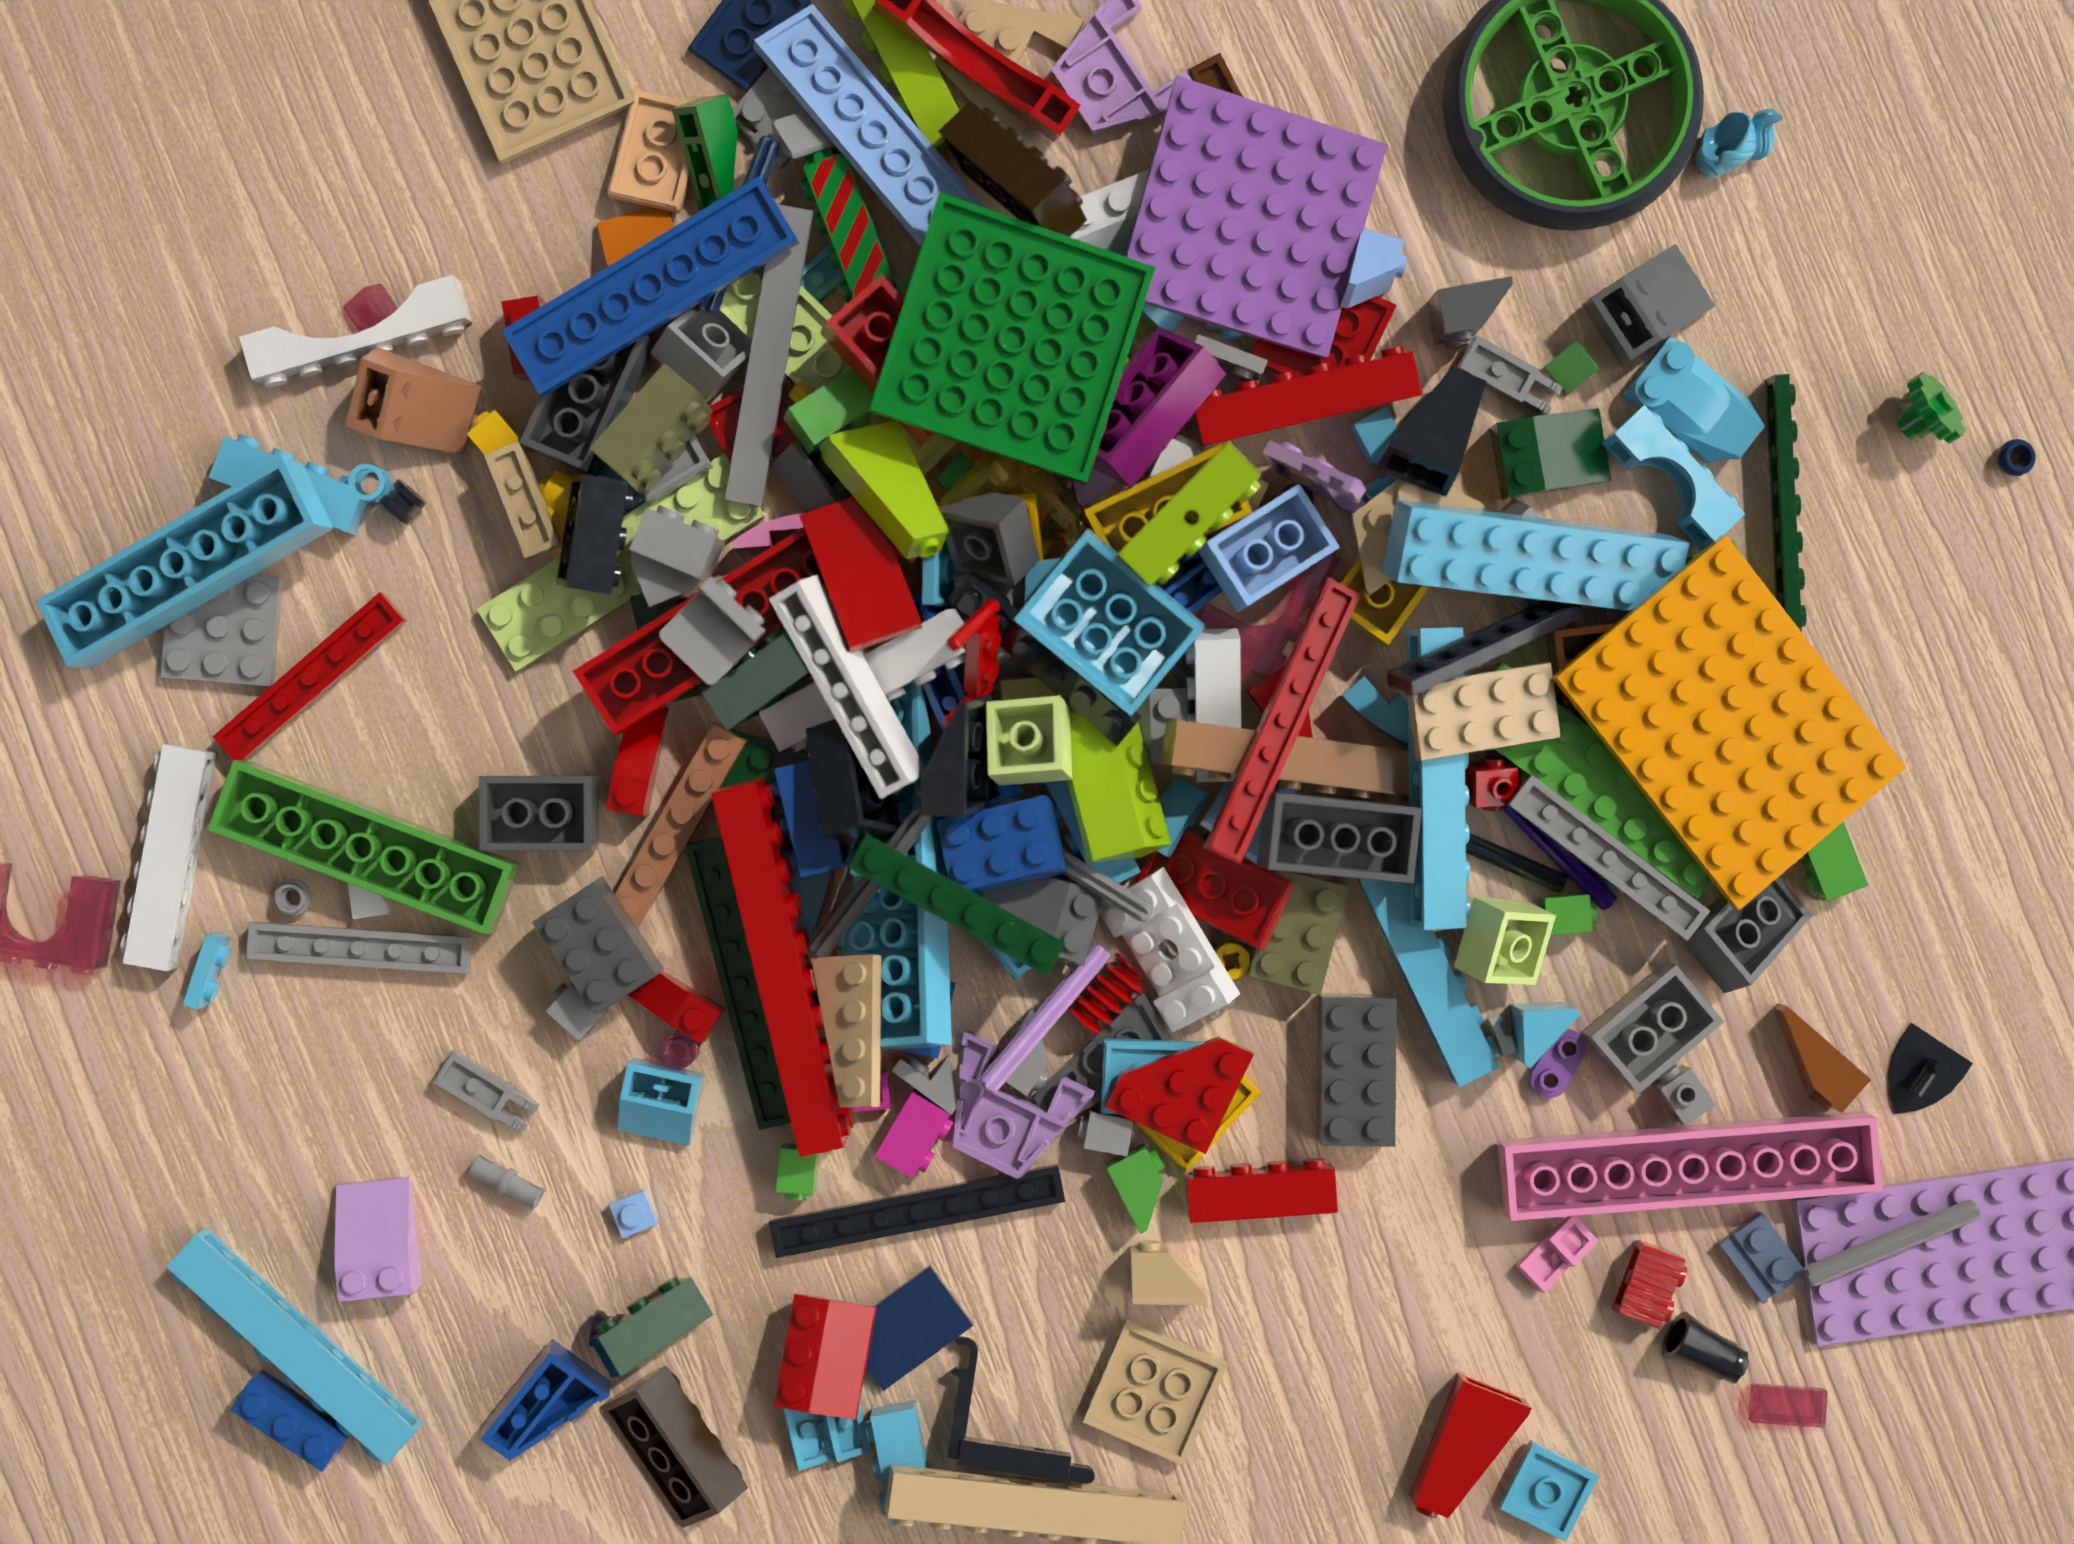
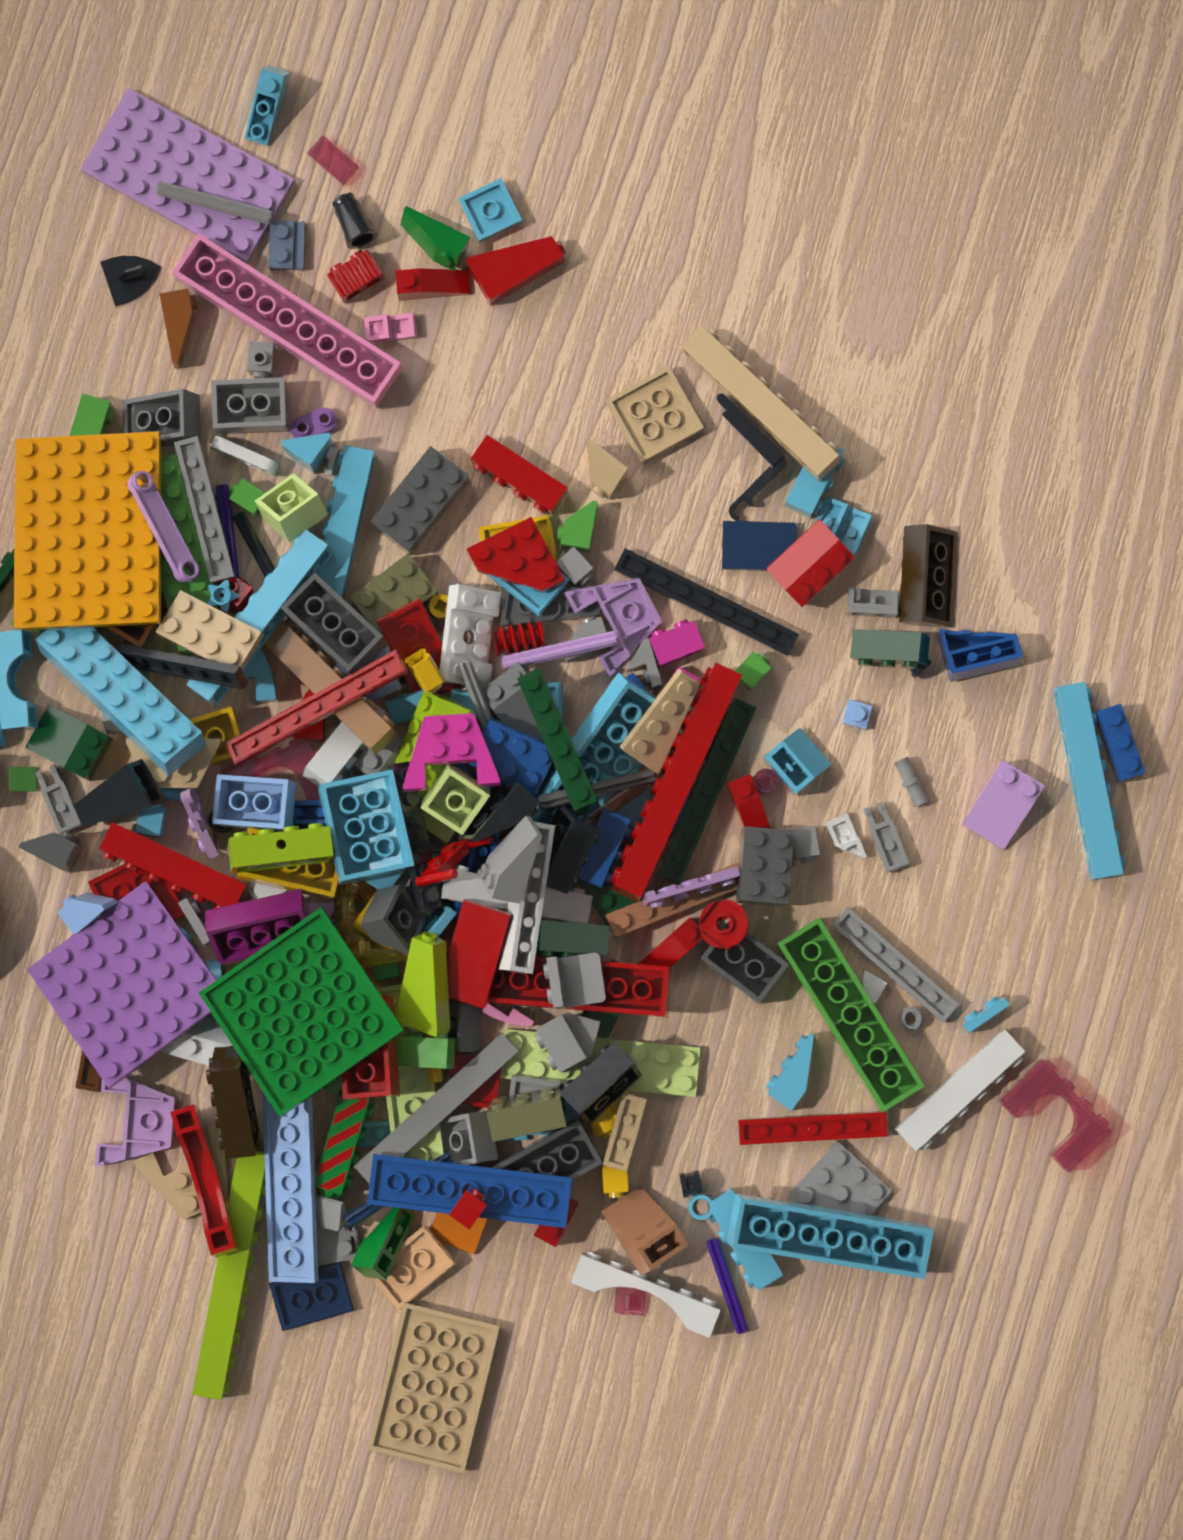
camera: 145 degrees left, 5 degrees down
(270, 416) = (727, 1286): none -> dark purple axle
(375, 715) = (793, 1079): none -> medium azure slope
(537, 1055) = (844, 835): none -> white slope
(606, 853) = (710, 927): none -> red plate
(631, 262) = (469, 1207): none -> red brick
(658, 863) = (680, 892): none -> lavender wing
(717, 1363) = (872, 603): none -> light grey hinge
(895, 713) = (511, 862): none -> light grey slope
(1089, 802) = (450, 741): none -> dark pink wing
(1186, 866) = (425, 671): none -> yellow brick
(1509, 779) = (215, 595): none -> medium azure plate
(1549, 1345) = (431, 283): none -> red slope
(1585, 1405) = (437, 240): none -> green slope
(1611, 961) = (244, 455): none -> white beam
(1642, 797) = (163, 526): none -> lavender piece
(1923, 1413) = (267, 103): none -> medium azure slope

